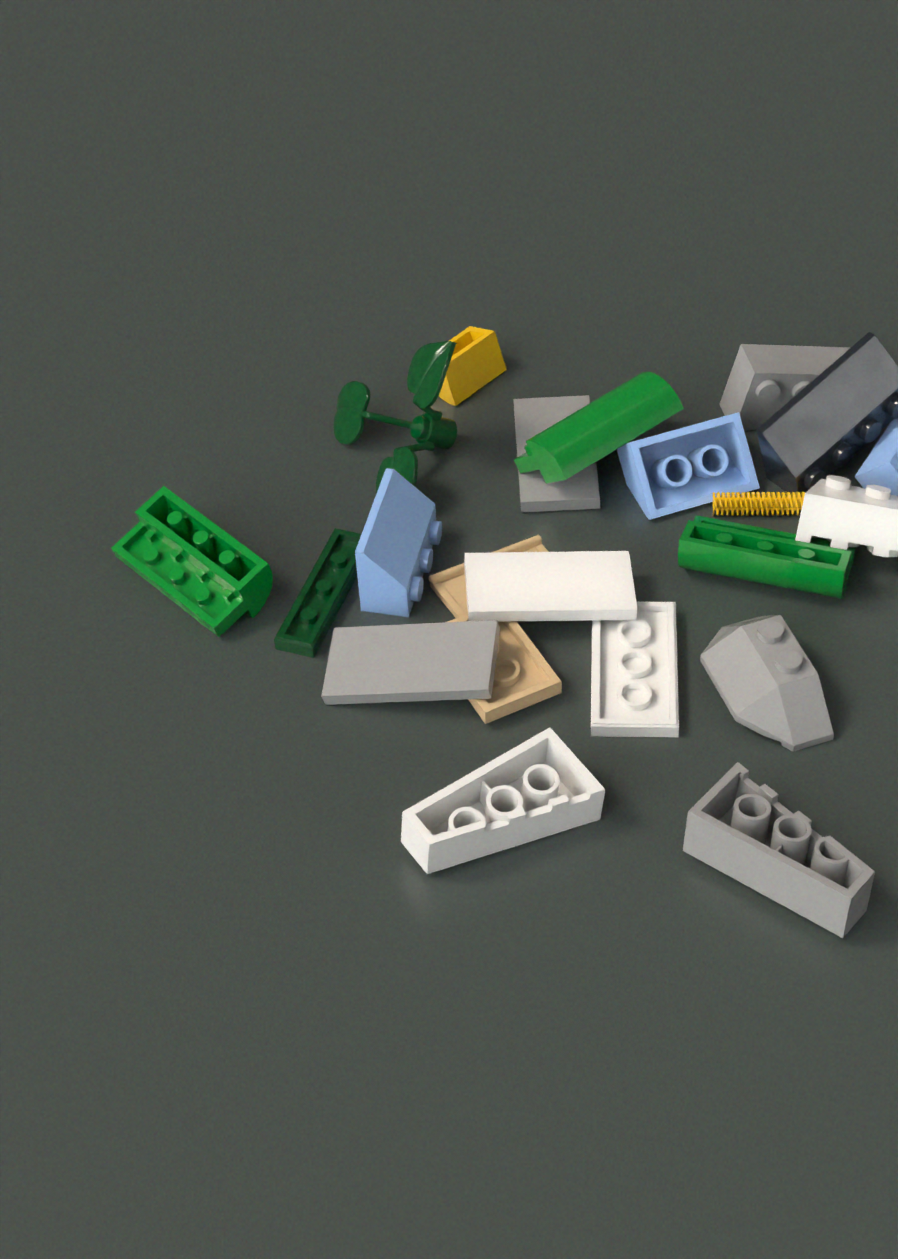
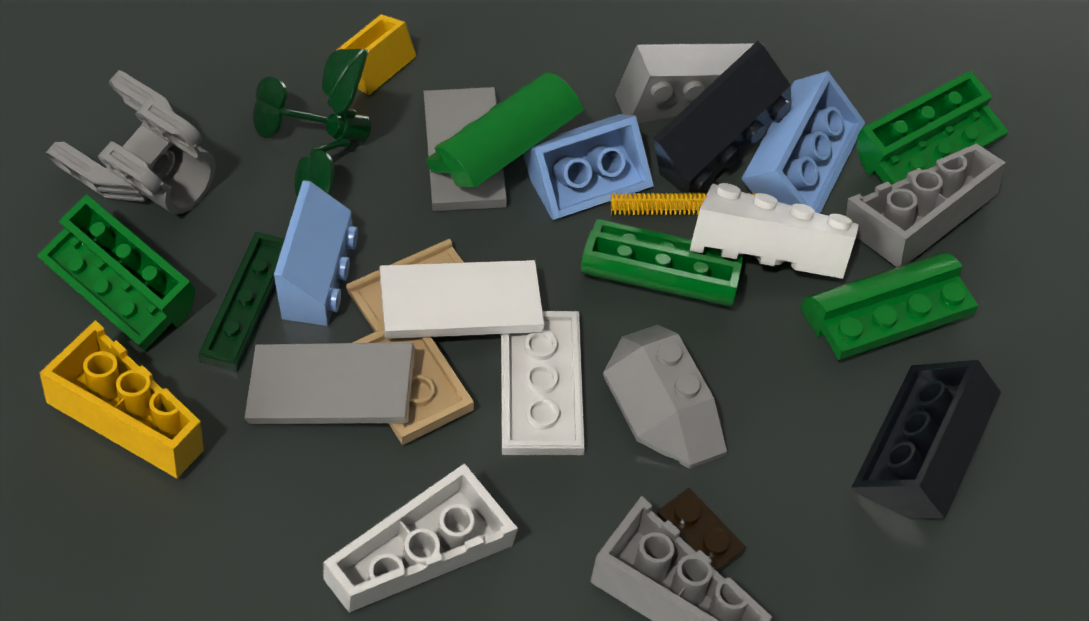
camera: 10 degrees left, 10 degrees up
(197, 677) = (121, 401): none -> yellow wedge
(234, 462) = (156, 161): none -> light grey piece
(800, 795) = (702, 529): none -> dark brown plate

